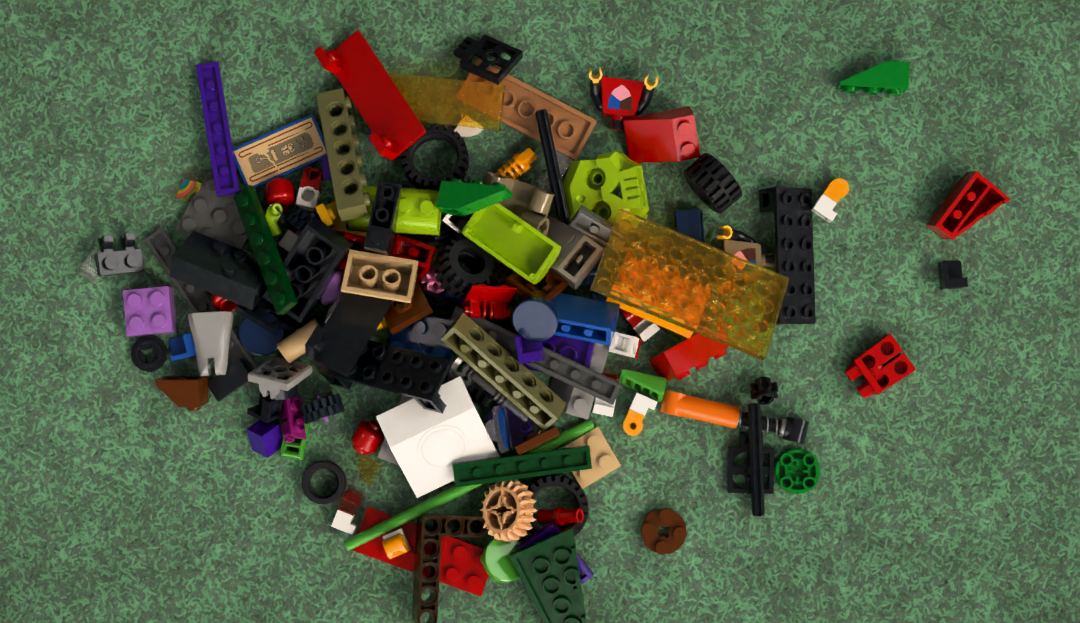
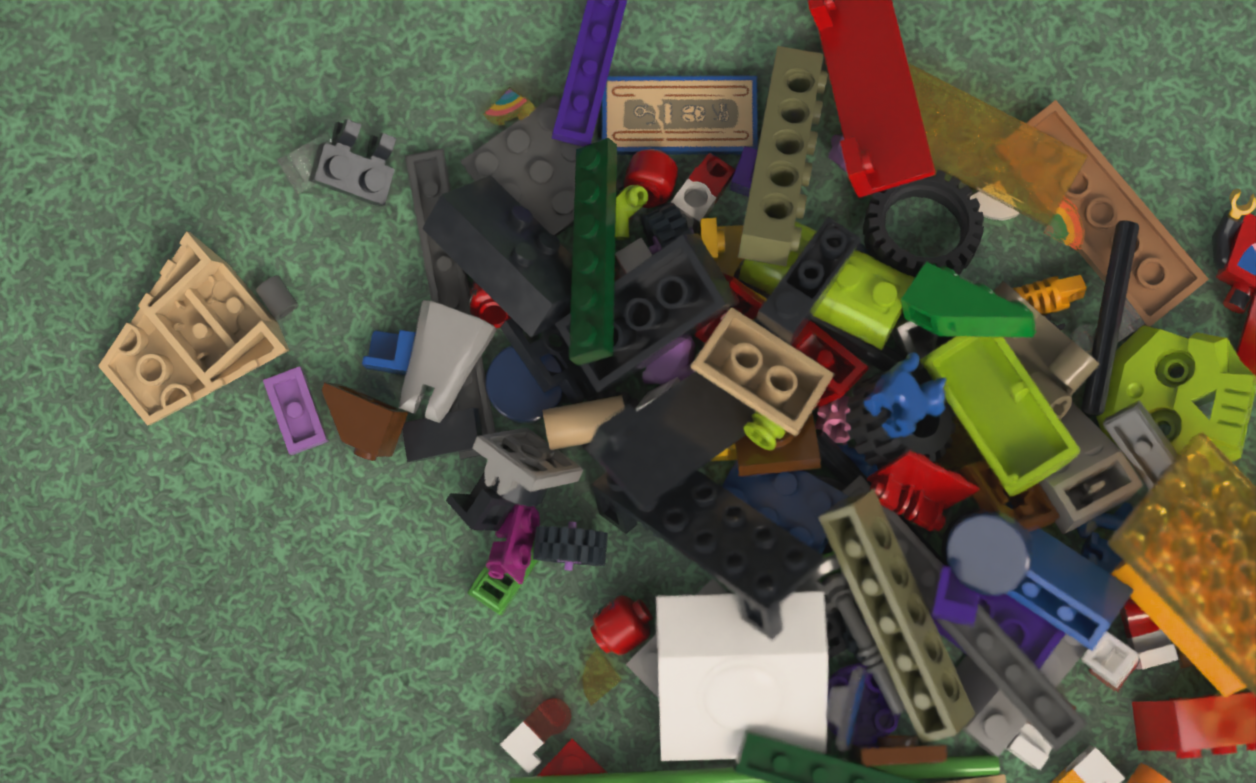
camera: 25 degrees right, 5 degrees down
(72, 385) = (190, 335): none -> tan wedge
(109, 345) = (276, 297): none -> dark grey hinge
(140, 359) = (334, 319): black gear -> none
(146, 400) = (295, 410): none -> medium lavender plate
(150, 311) = (364, 271): medium lavender brick -> none
(265, 437) = (456, 552): dark purple panel -> none
(306, 482) = (488, 665): black tyre -> none
(394, 307) = (763, 431): none -> lime bush
(458, 258) = (905, 398): none -> blue animal
(470, 47) = (1074, 90): black piece -> none
(510, 124) = (1067, 226): none -> clear yellow tile
(645, 384) = (1114, 739): bright green slope -> none

